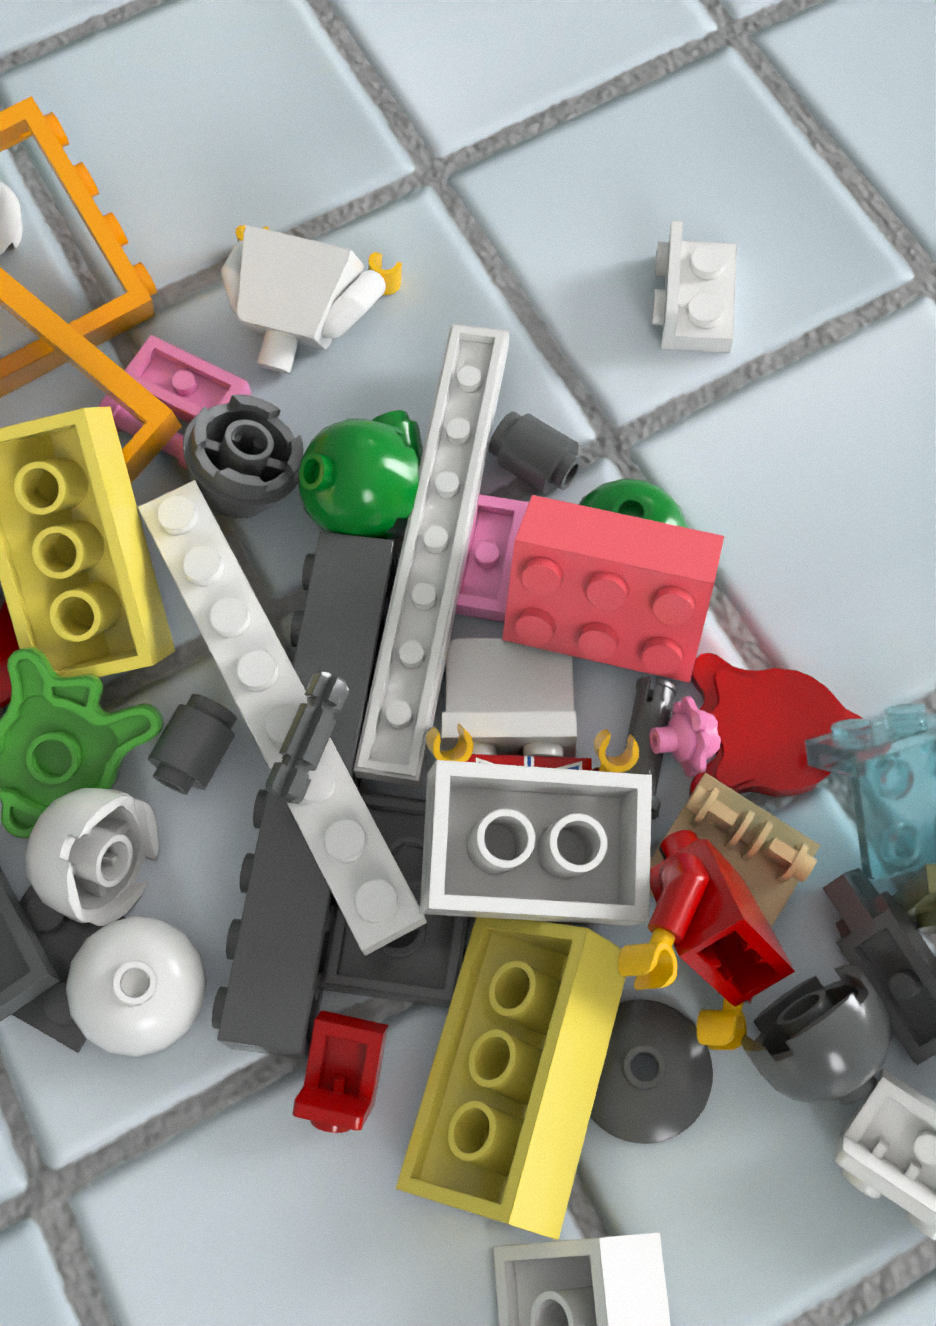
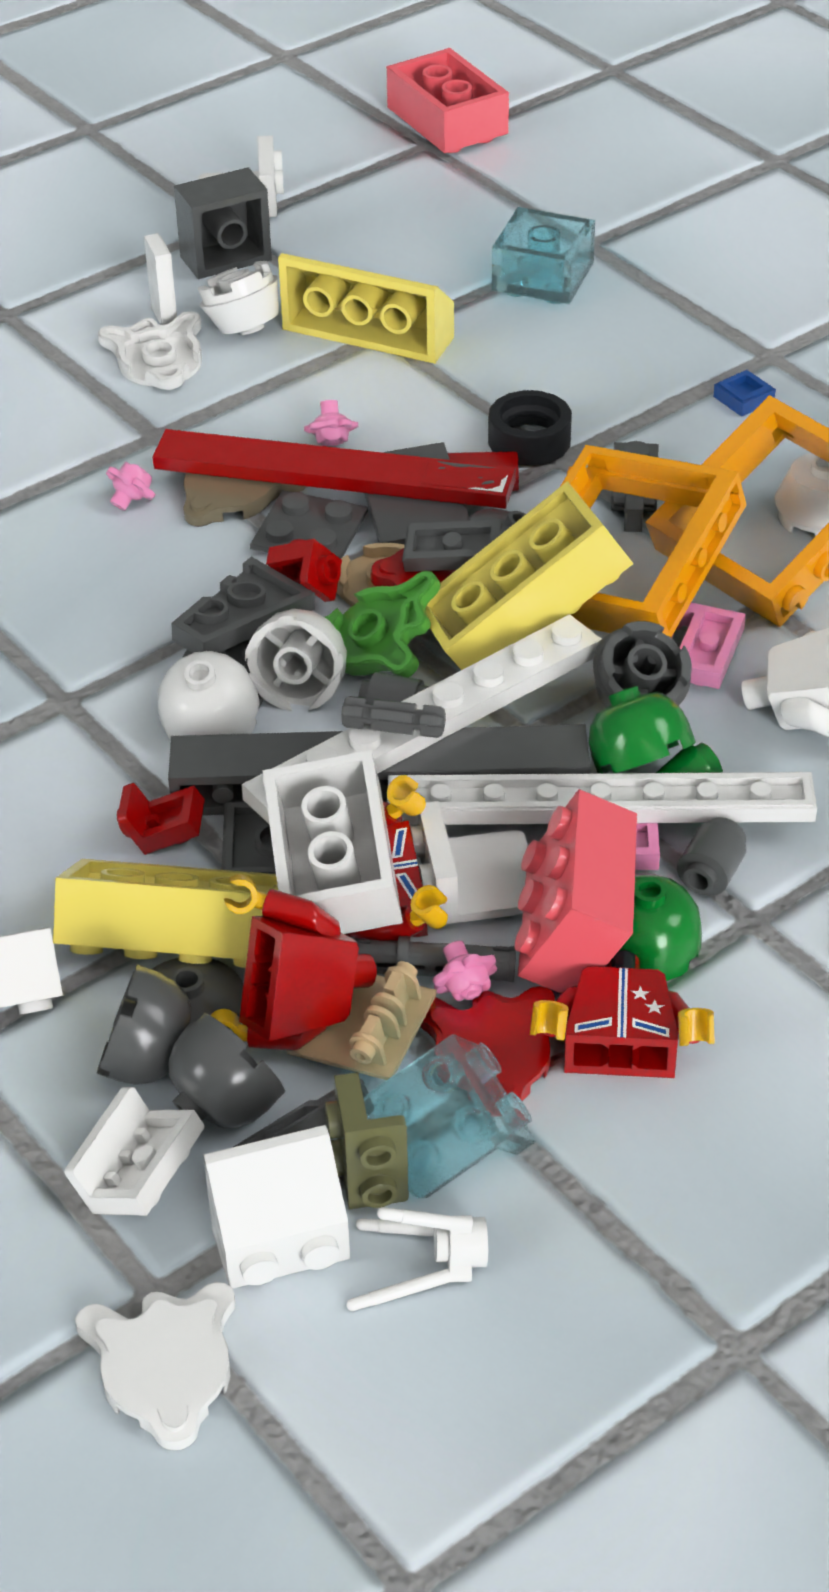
camera: 75 degrees right, 25 degrees down
(736, 1129) = (145, 1028): none -> dark grey cylinder
(774, 585) = (622, 1021): none -> red torso

